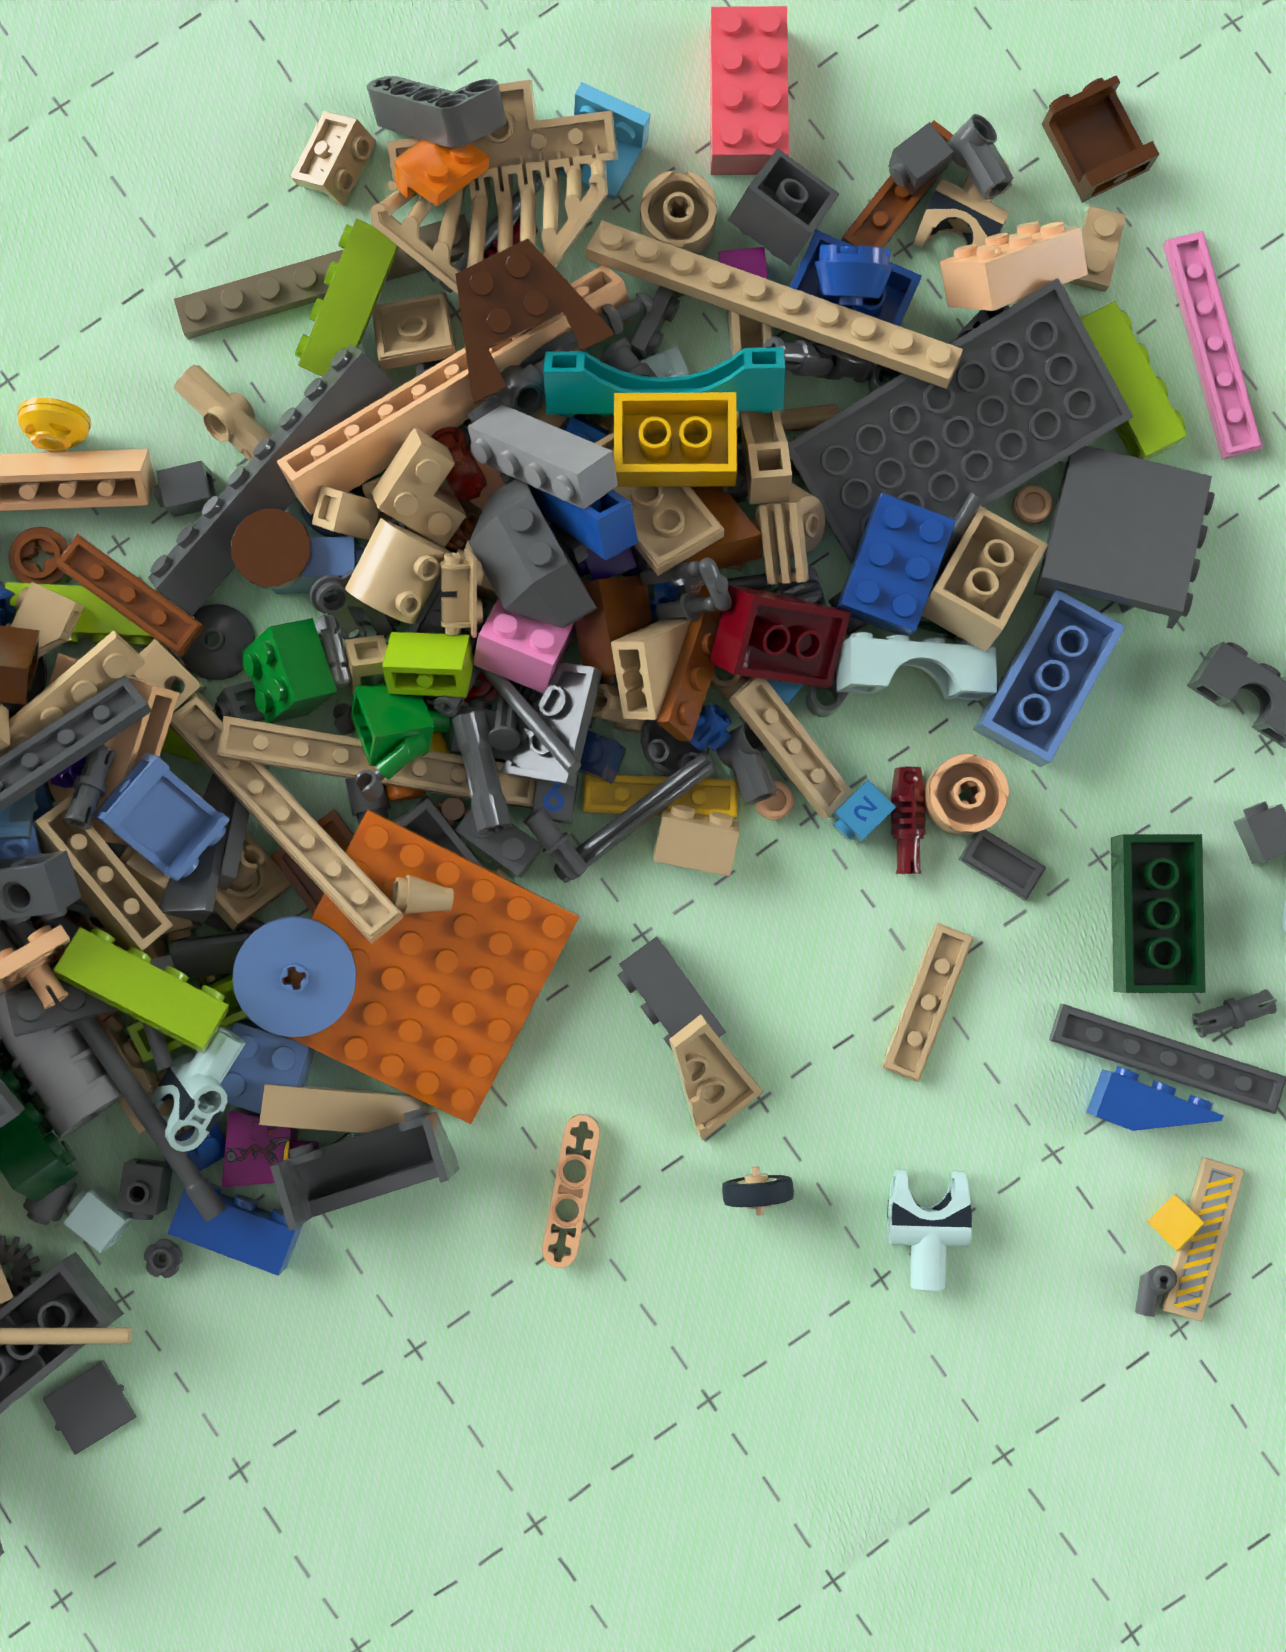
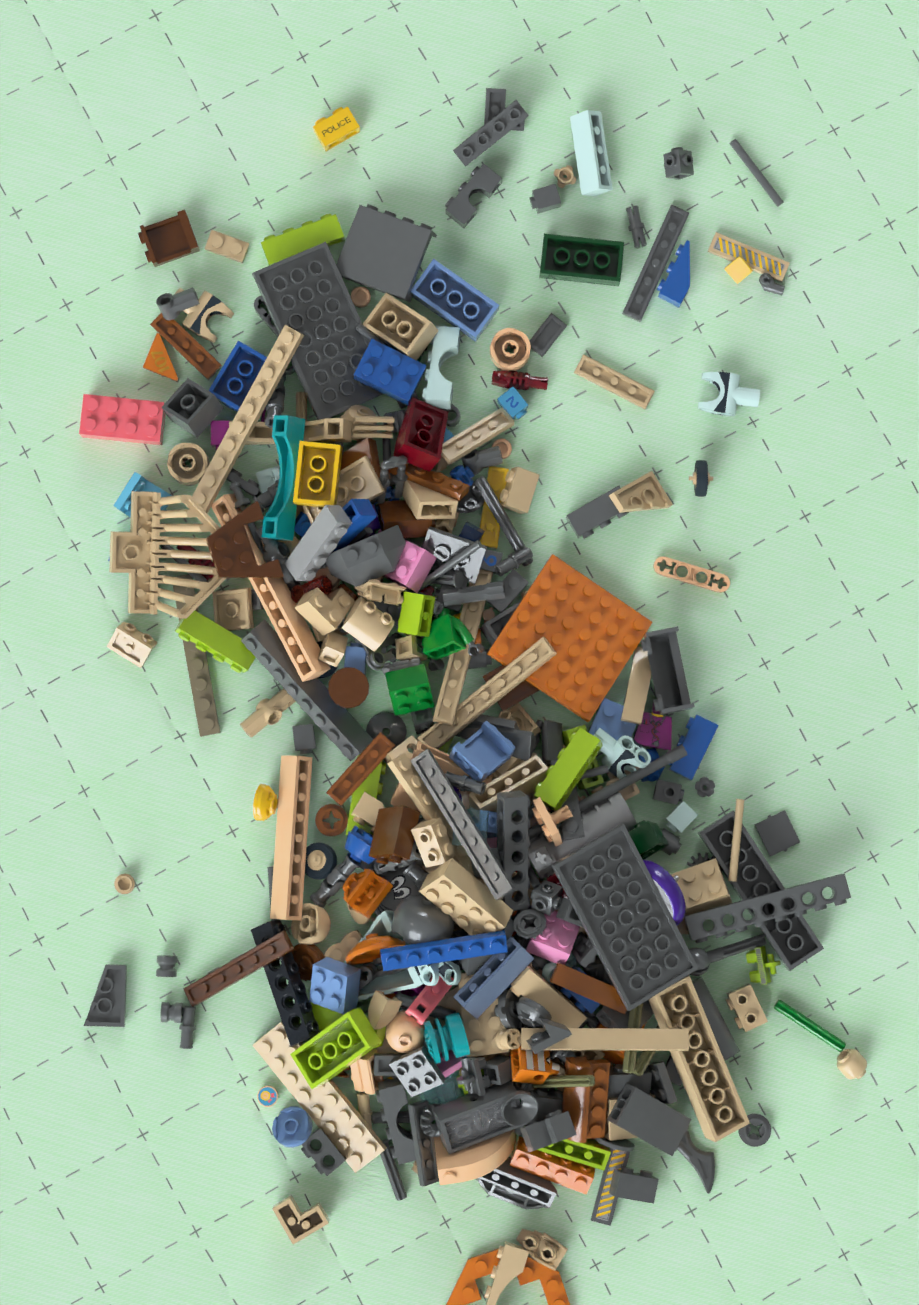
camera: 85 degrees left, 0 degrees up
(310, 949) = (558, 708): medium blue piece -> none
(420, 896) = (534, 629): tan cone -> none
(437, 113) = (124, 585): dark grey beam -> none
(438, 170) = (153, 584): orange slope -> none
(853, 272) = (237, 375): blue cone -> none
(866, 150) = (159, 360): none -> orange tile
(919, 159) = (174, 334): dark grey brick -> none
(1013, 265) = (239, 293): light nougat brick -> none
(1212, 345) = (285, 193): bright pink tile -> none

